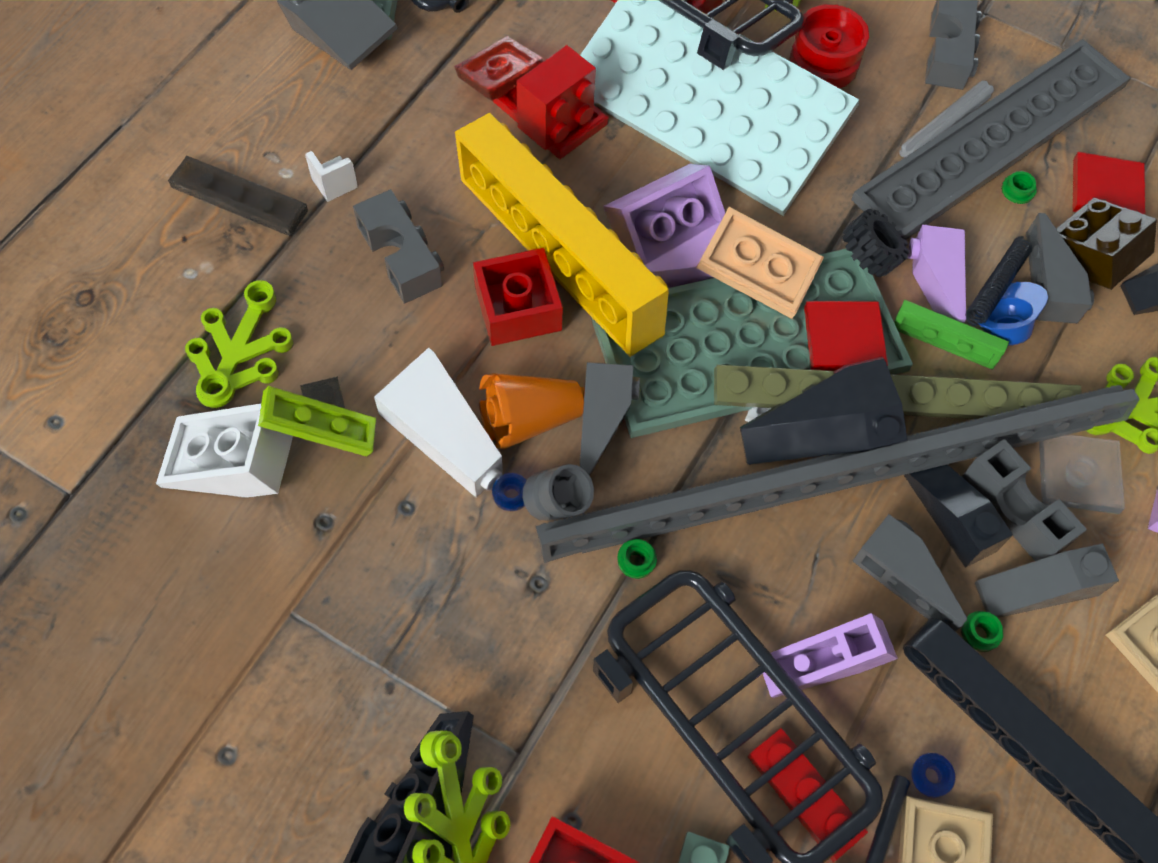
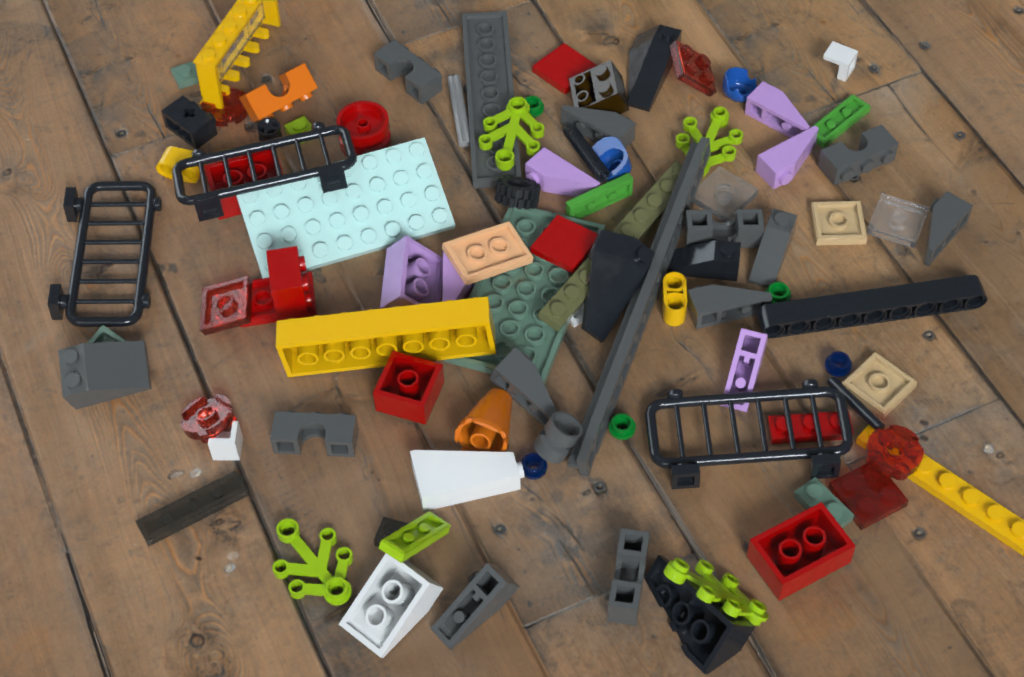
camera: 50 degrees left, 10 degrees down
(280, 541) = (475, 605): none -> dark grey slope
(348, 137) = (219, 413): none -> clear red plate
(393, 704) = (628, 577): none -> dark grey arch
(869, 506) = (674, 298): none -> yellow beam
(994, 171) = (516, 110): none -> lime plant

